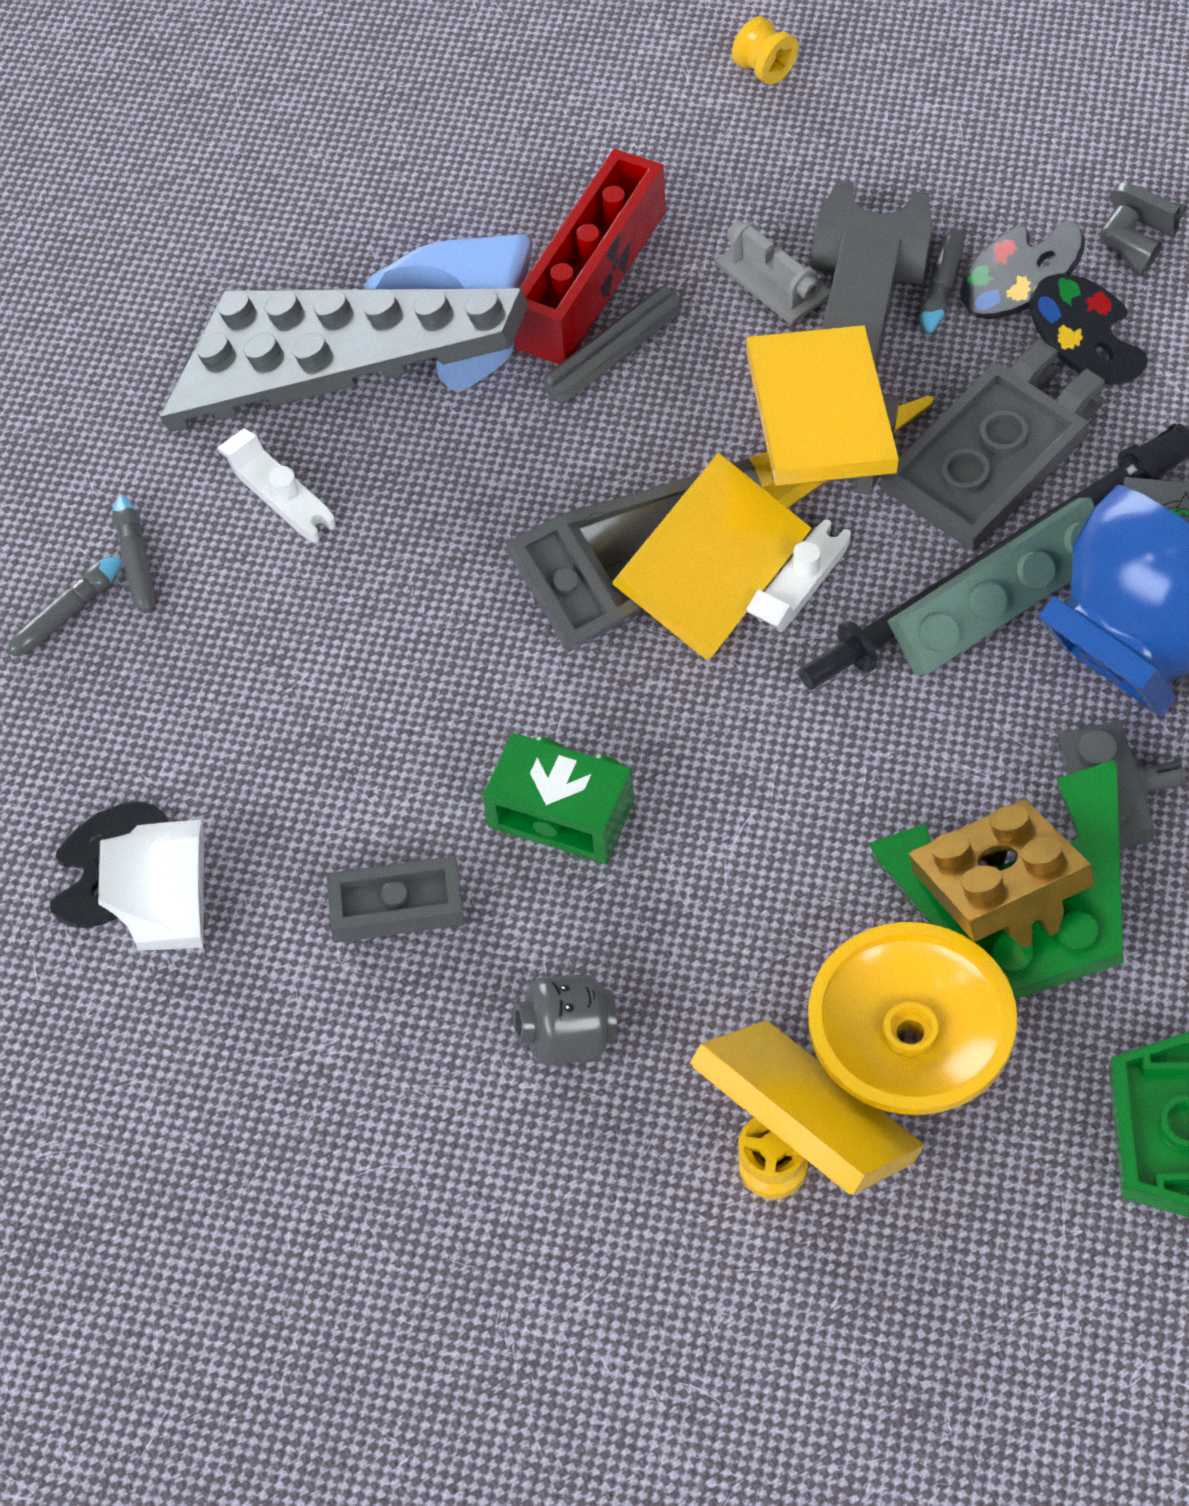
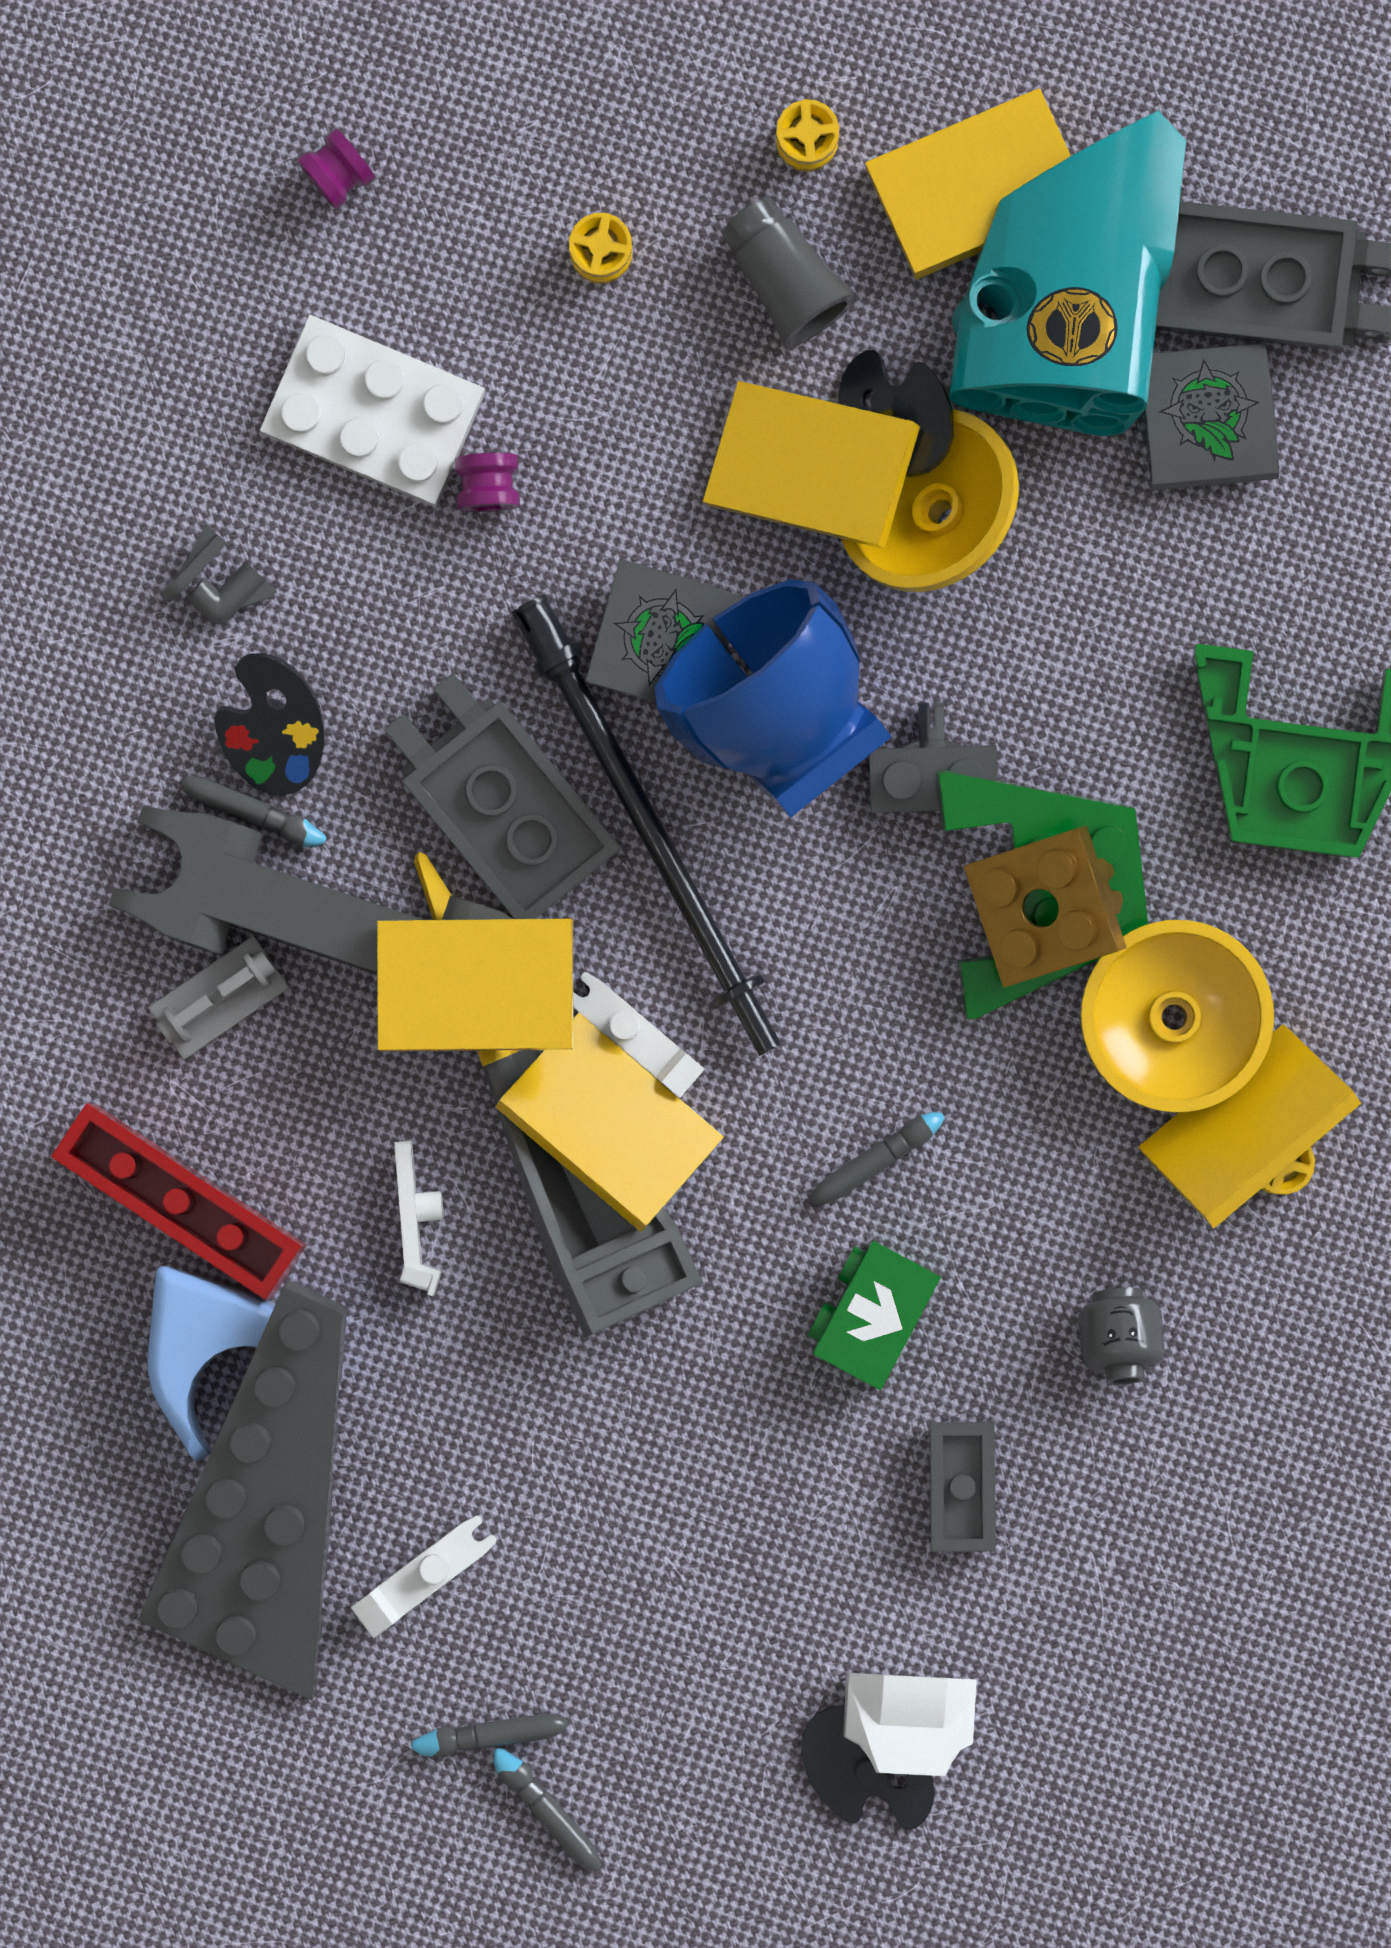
camera: 85 degrees left, 30 degrees up
(600, 431) = (415, 1209): none -> white piece
(612, 344) = (286, 1189): dark grey axle -> none
(743, 815) = (877, 1158): none -> dark grey piece
(991, 591) = (688, 831): sand green plate -> none
(1079, 316) = (355, 685): black piece -> none

